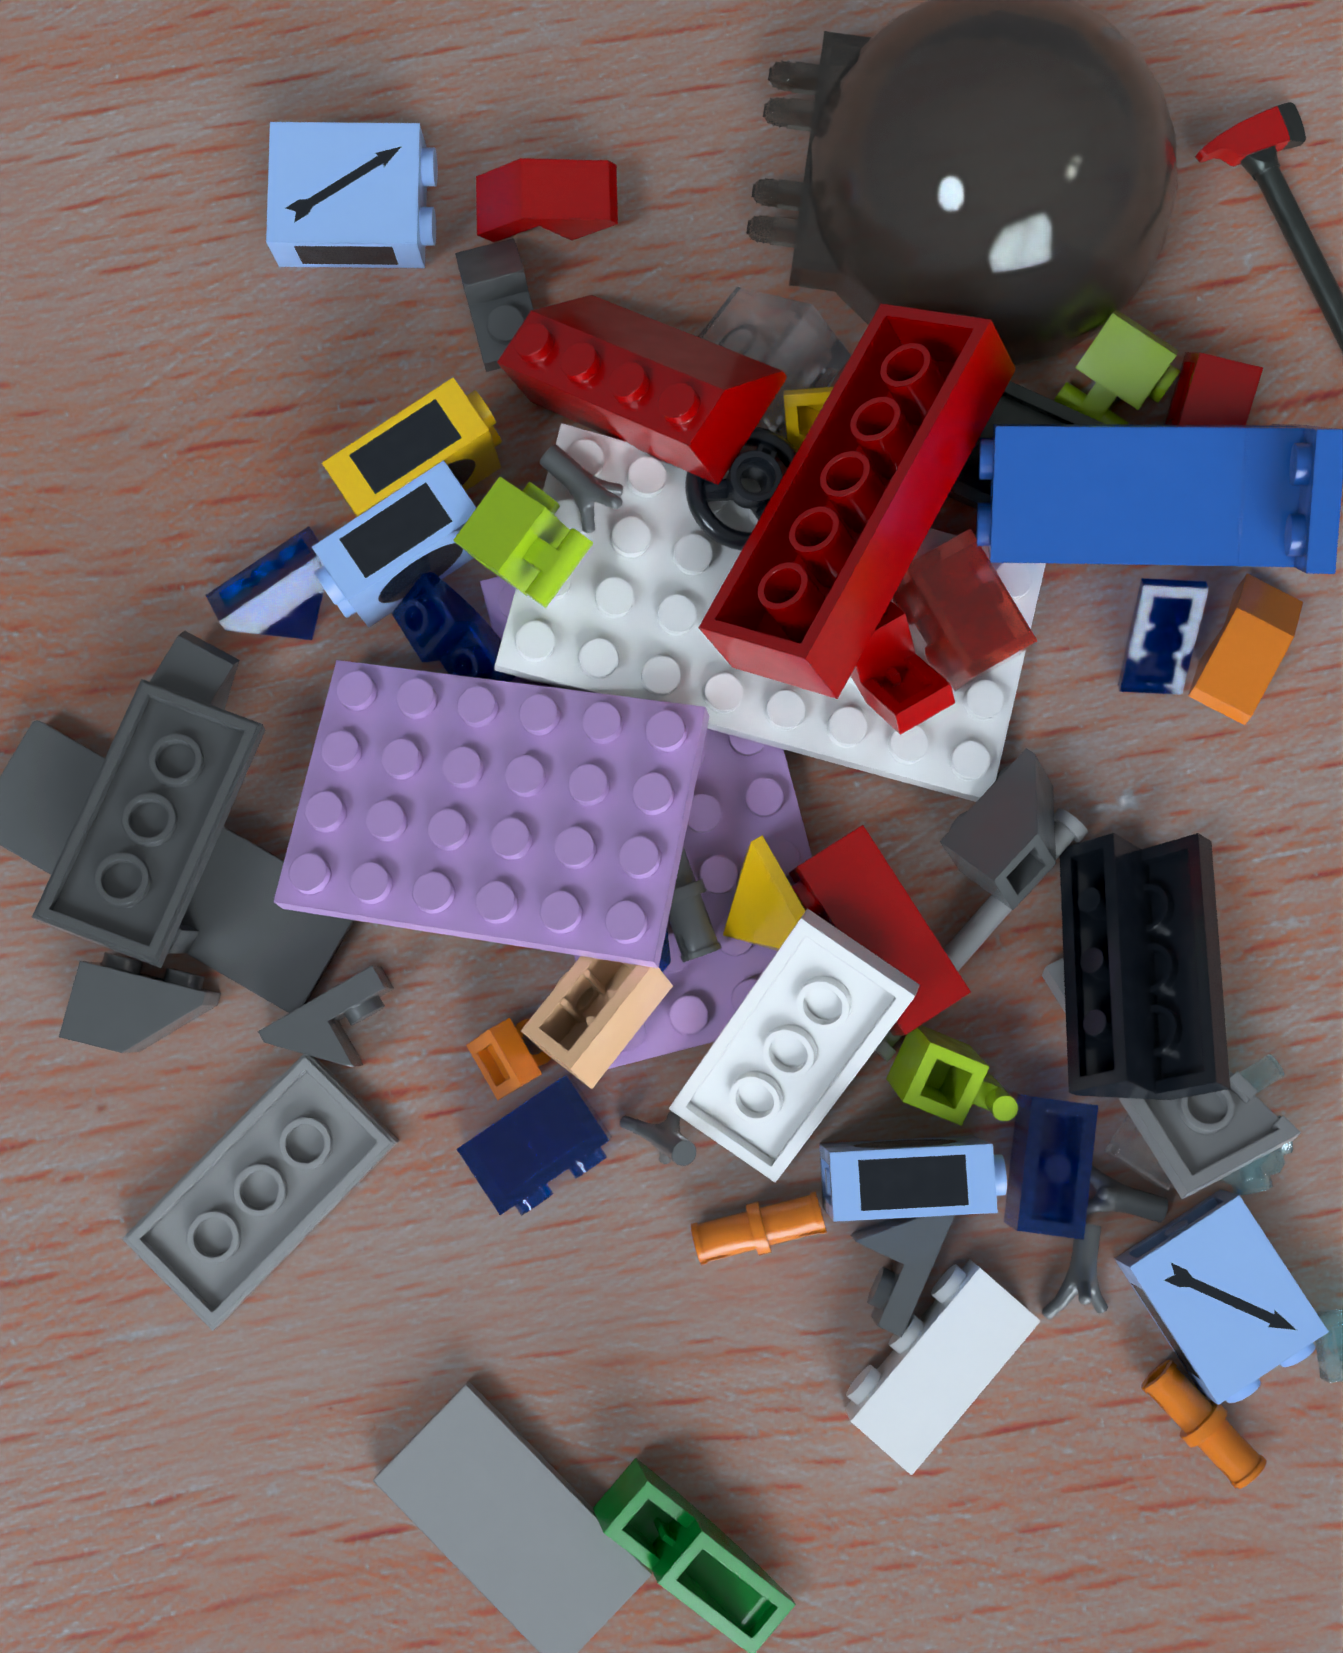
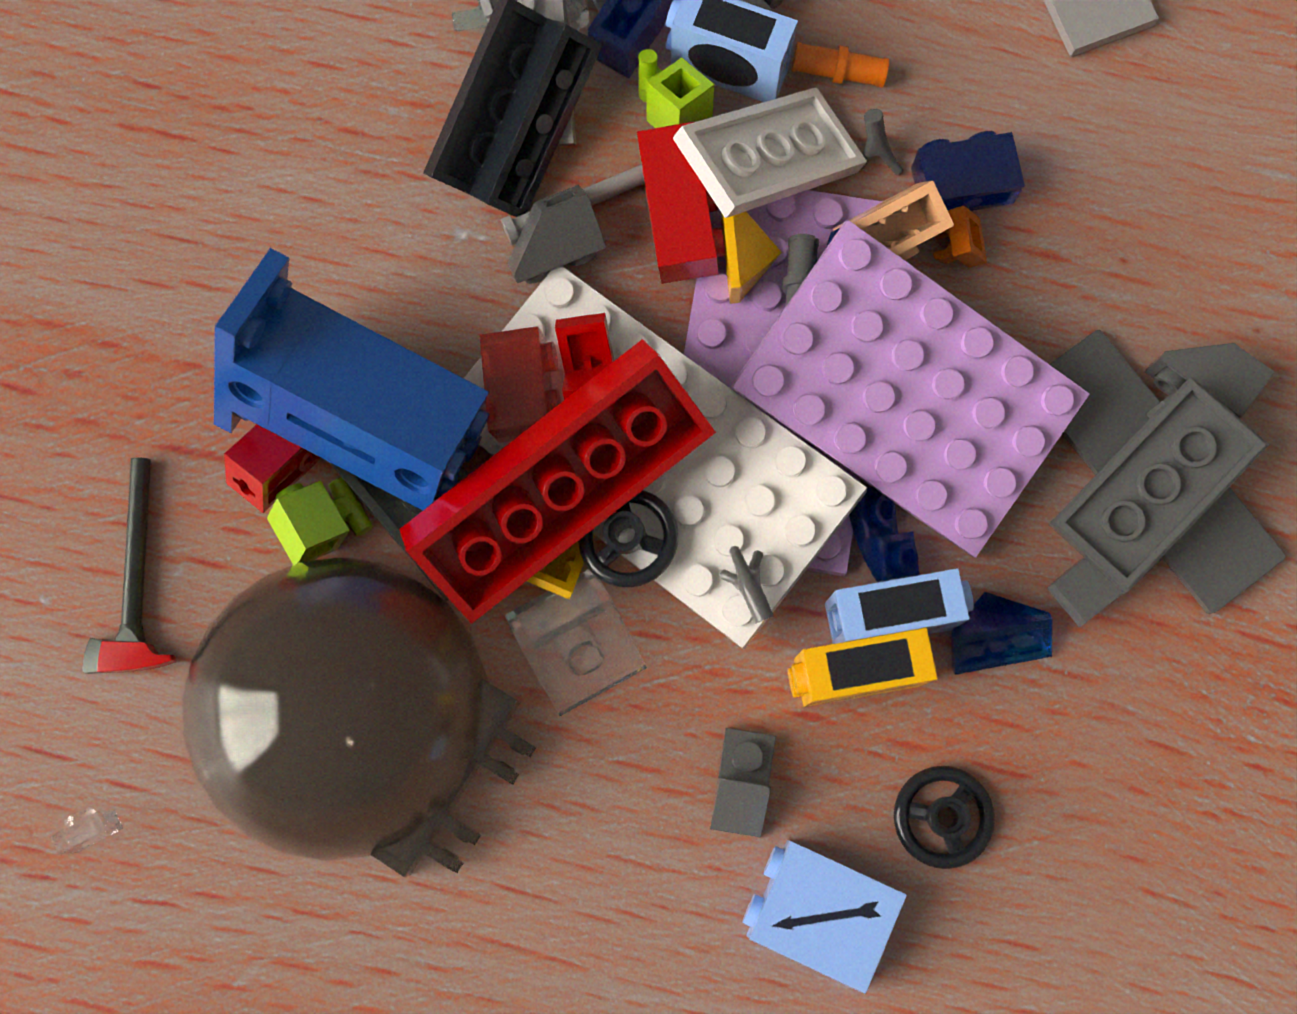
camera: 155 degrees left, 5 degrees down
(253, 339) = (968, 788): none -> black piece
(260, 1190) = (1164, 229): light grey tile -> none
(317, 1026) = (1086, 310): dark grey slope -> none
(523, 540) = (817, 559): lime brick -> none
(556, 194) = (674, 843): red slope -> none
(642, 382) = (668, 653): red slope -> none
(1162, 636) = (391, 313): clear blue slope -> none
(1246, 650) = (343, 278): orange slope -> none

